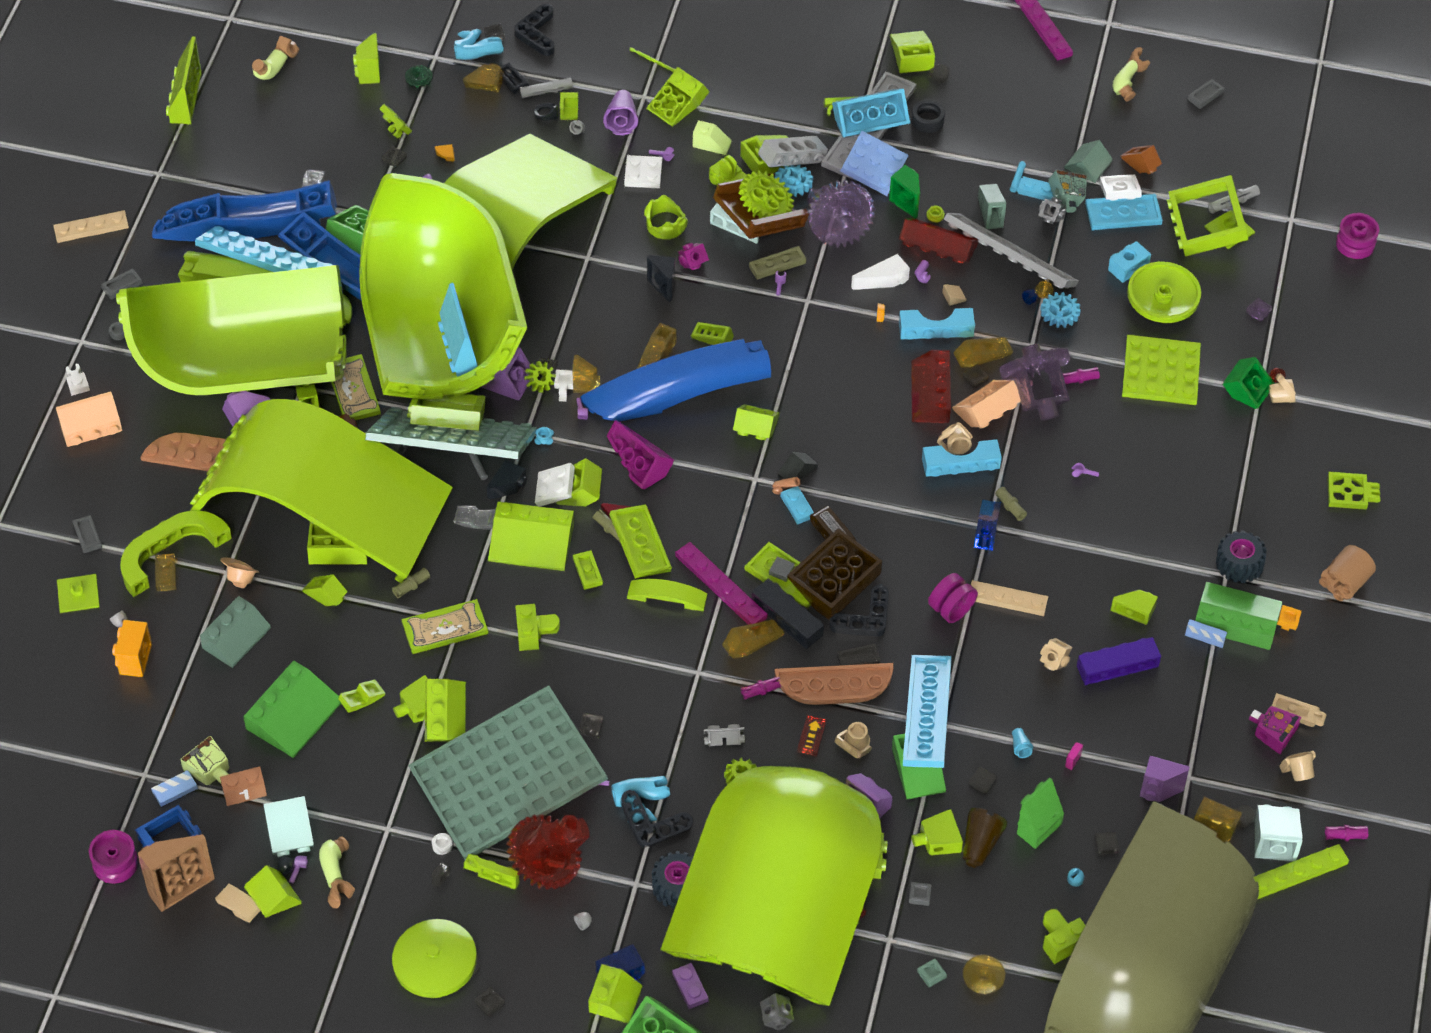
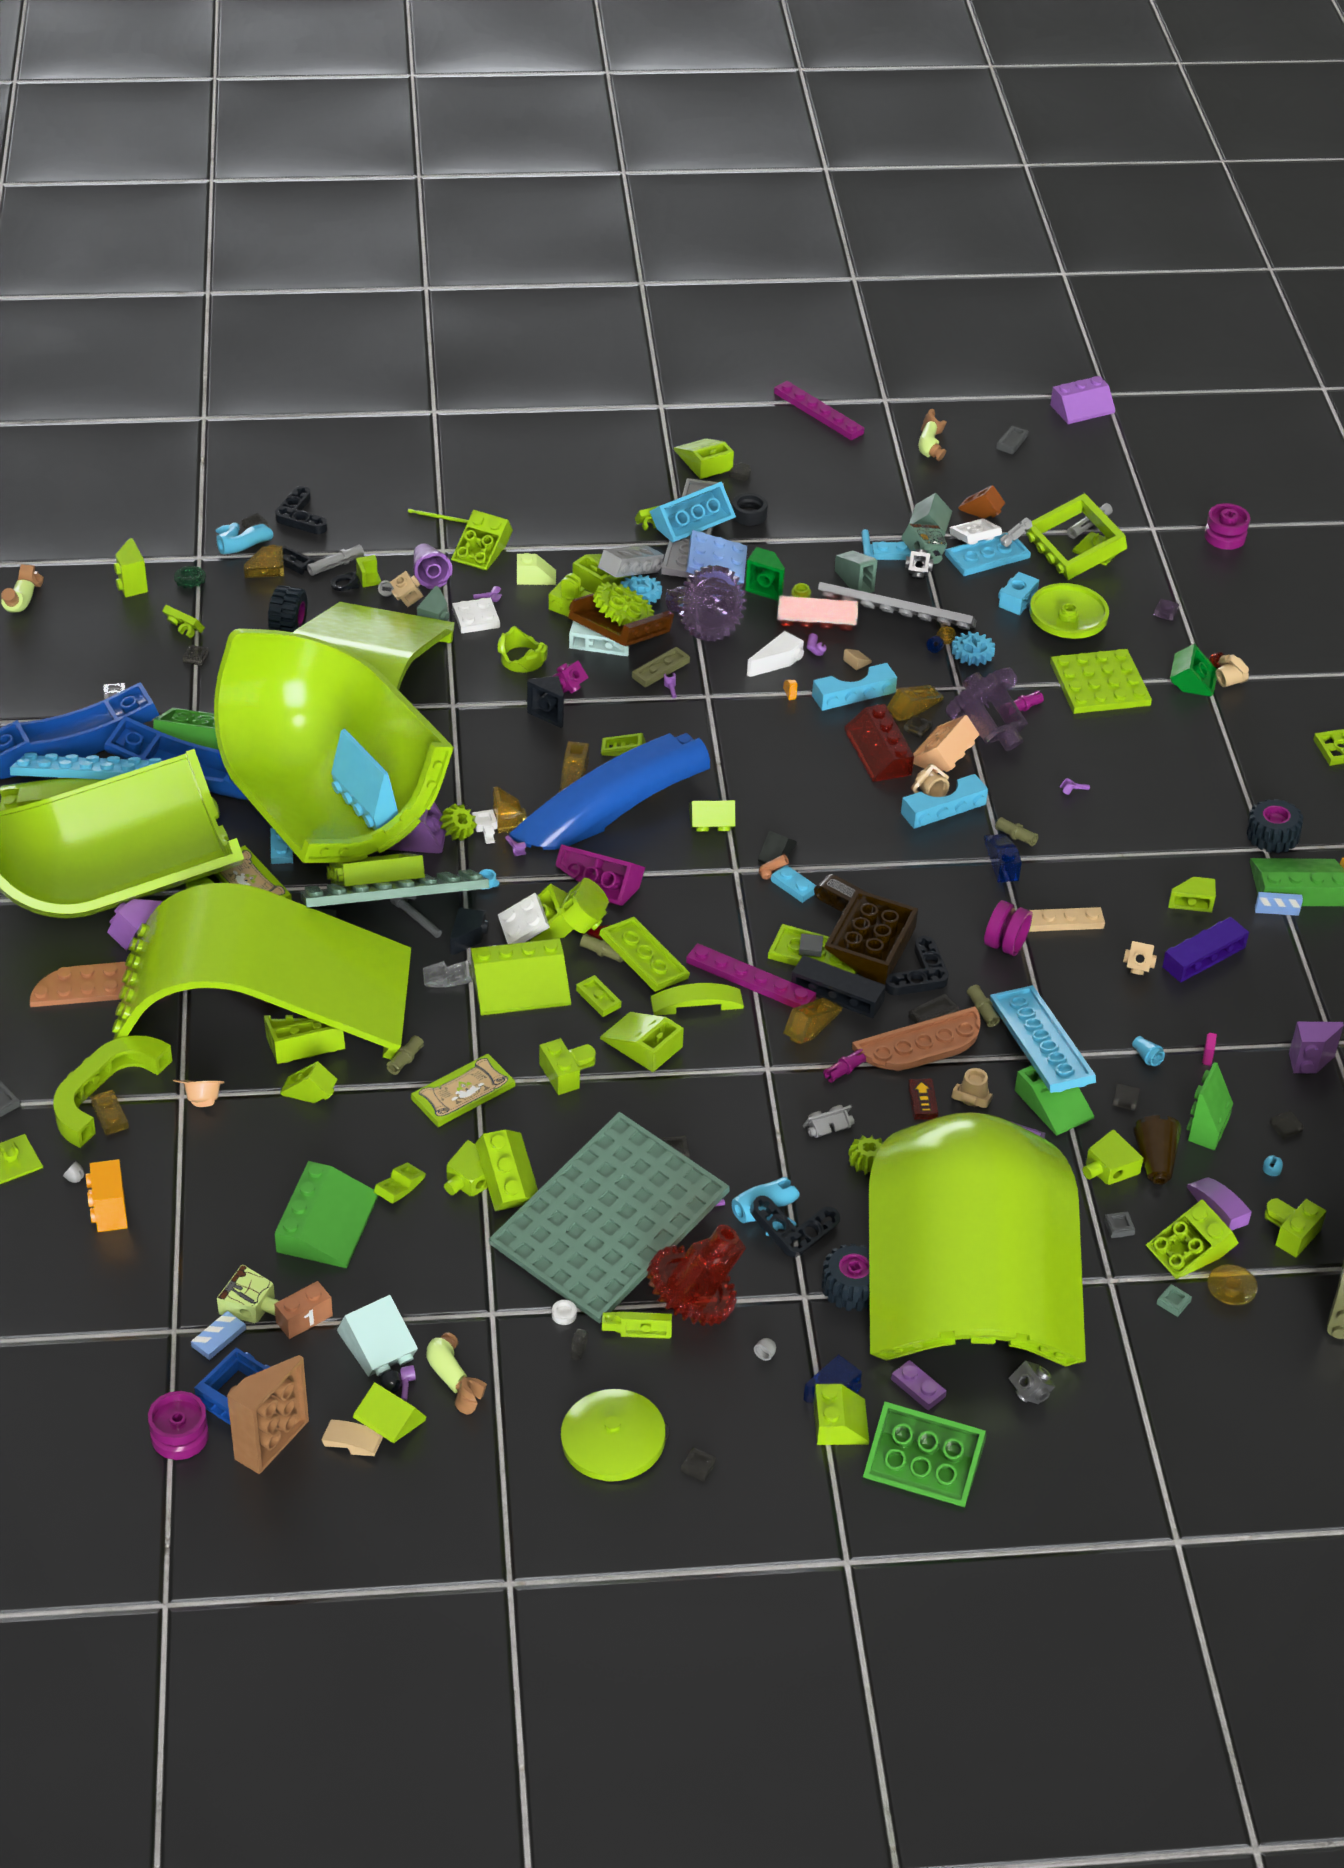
camera: 20 degrees left, 10 degrees down
(234, 632) = (221, 1152): sand green slope -> none
(480, 134) = (287, 608): none -> black wheel
(592, 133) = (403, 586): none -> tan brick
(607, 157) = (434, 606): none -> sand green slope
(607, 485) = (584, 906): none -> lime brick
(607, 620) = (645, 1038): none -> lime slope
(901, 663) = (983, 1005): none -> olive pin
(971, 926) = (1192, 1241): none -> lime slope
(1011, 899) = (1222, 1202): none -> medium lavender slope
(1155, 198) = (1016, 532): none -> light grey axle
(1291, 66) = (1082, 400): none -> medium lavender slope

